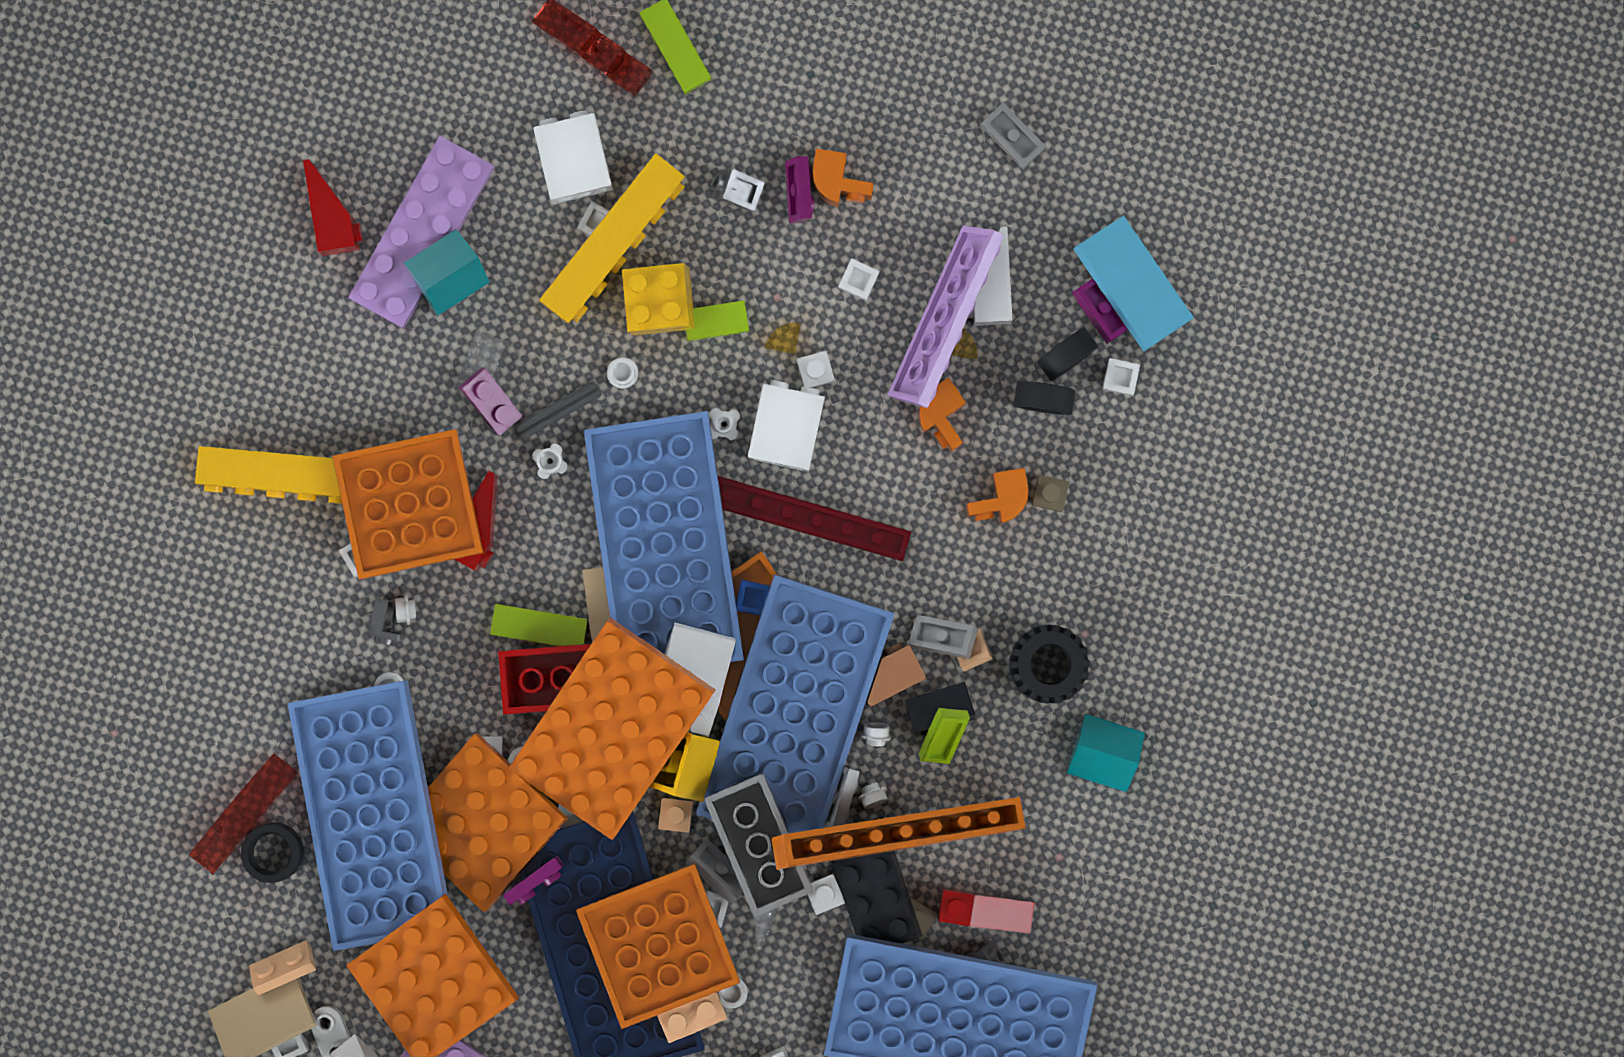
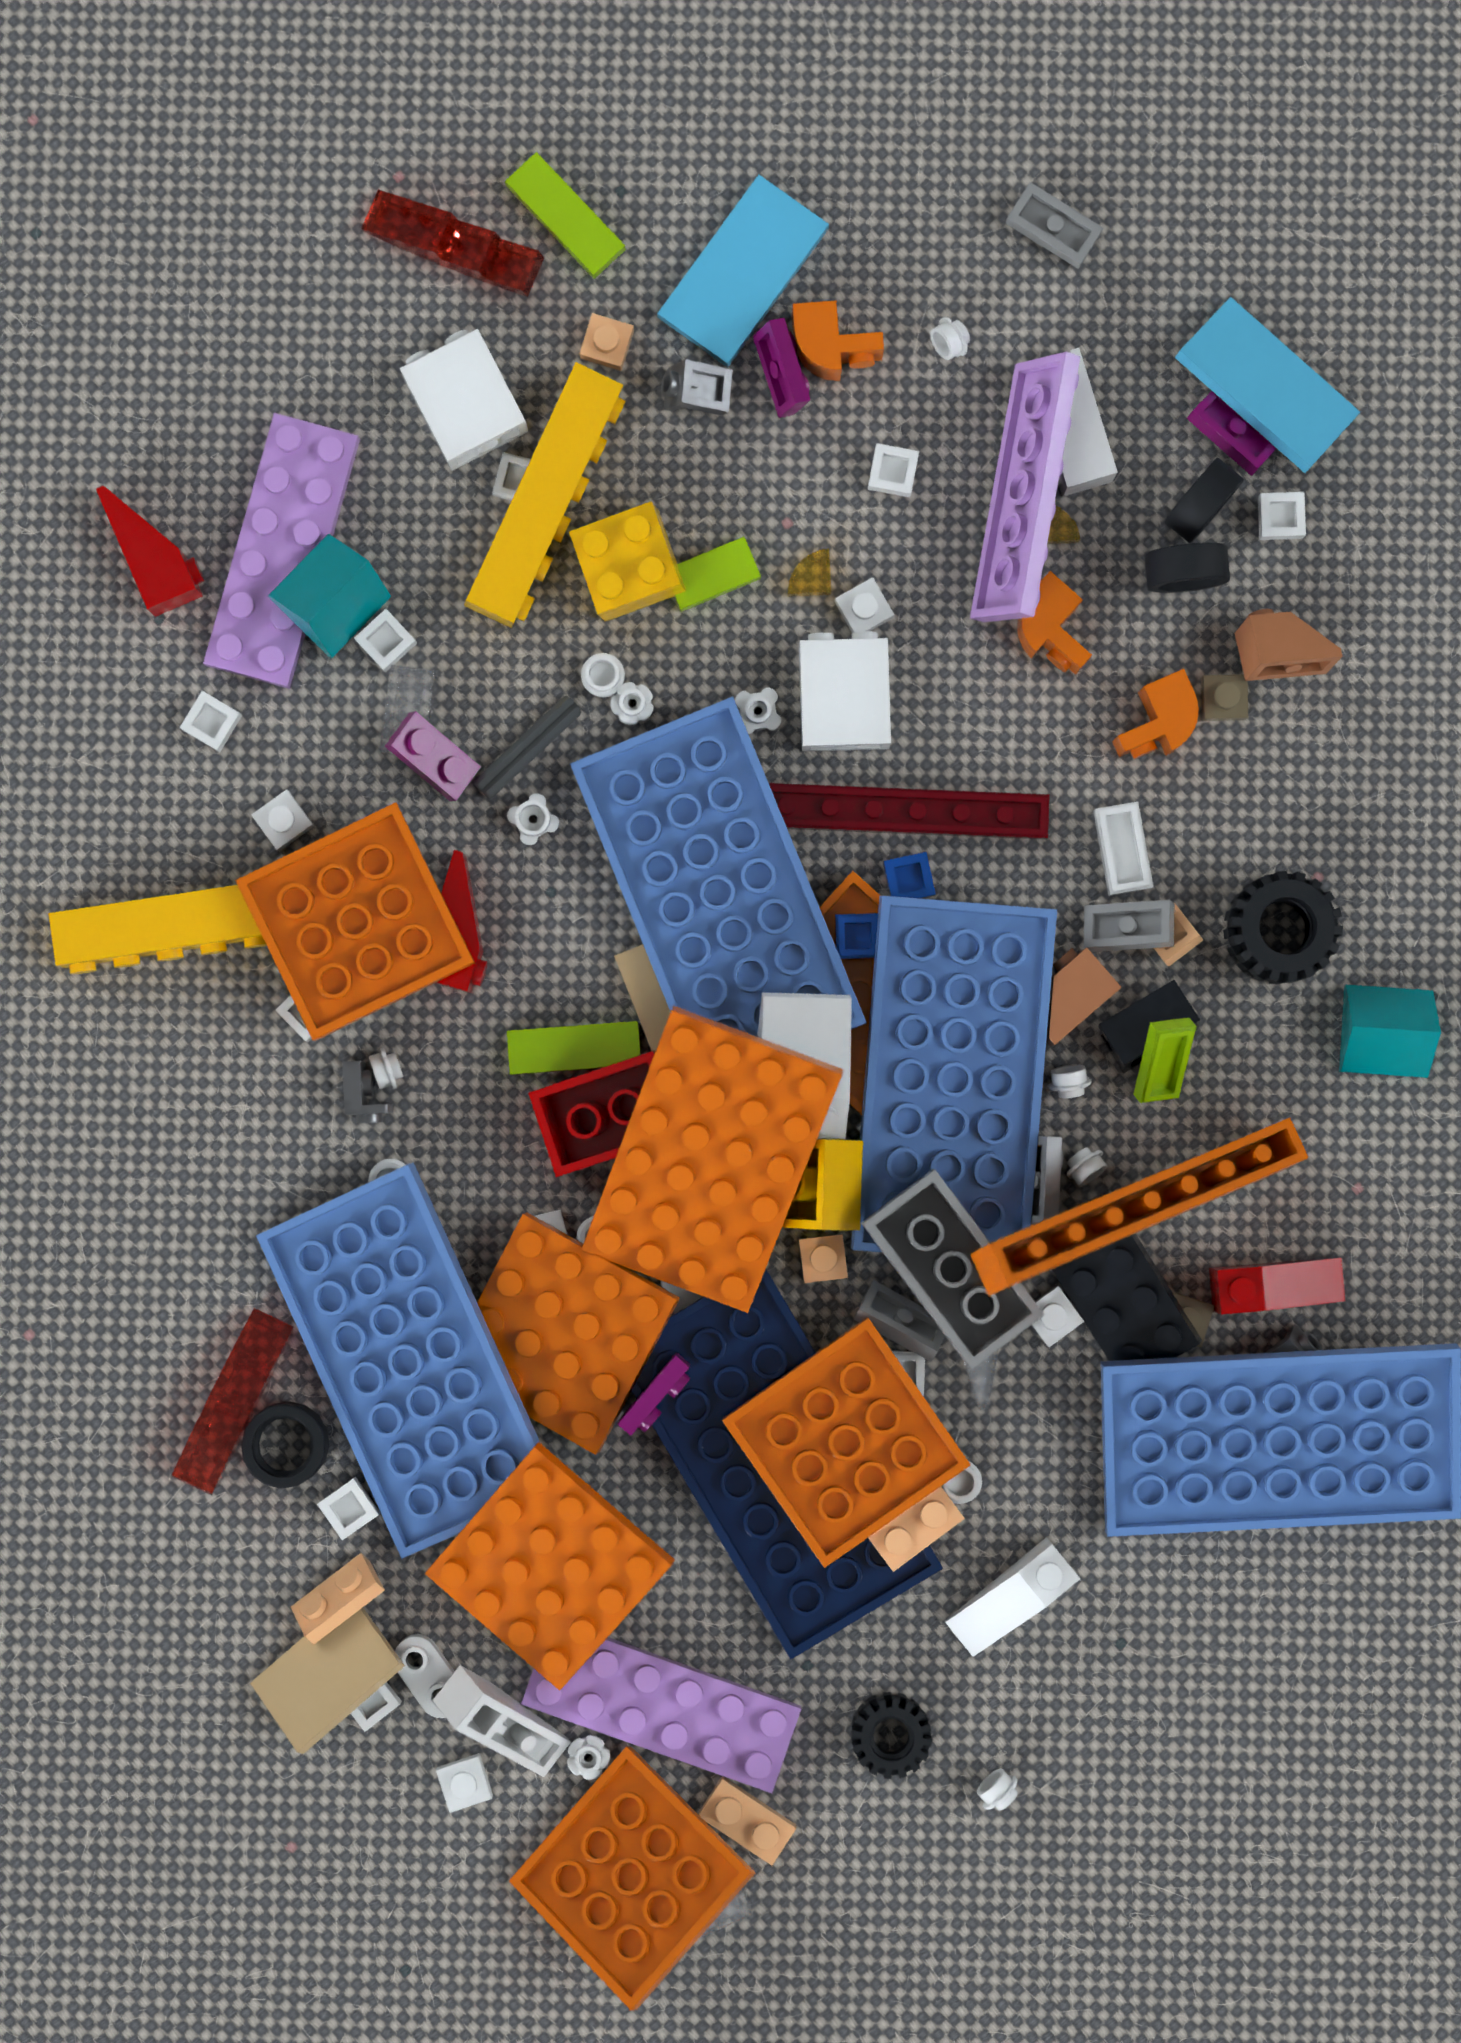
camera: 15 degrees left, 0 degrees up
(305, 907) = (348, 1508): none -> white plate
(343, 339) = (210, 721): none -> white plate
(376, 419) = (282, 820): none -> white plate
(477, 312) = (385, 640): none -> white plate
(638, 389) = (632, 715): none -> white plate
(682, 141) = (606, 342): none -> light nougat plate
(789, 114) = (743, 270): none -> medium azure tile
(800, 565) = (909, 876): none -> blue plate
(921, 197) = (950, 338): none -> white plate
(954, 581) = (1123, 848): none -> white tile
(1097, 468) = (1282, 647): none -> nougat slope

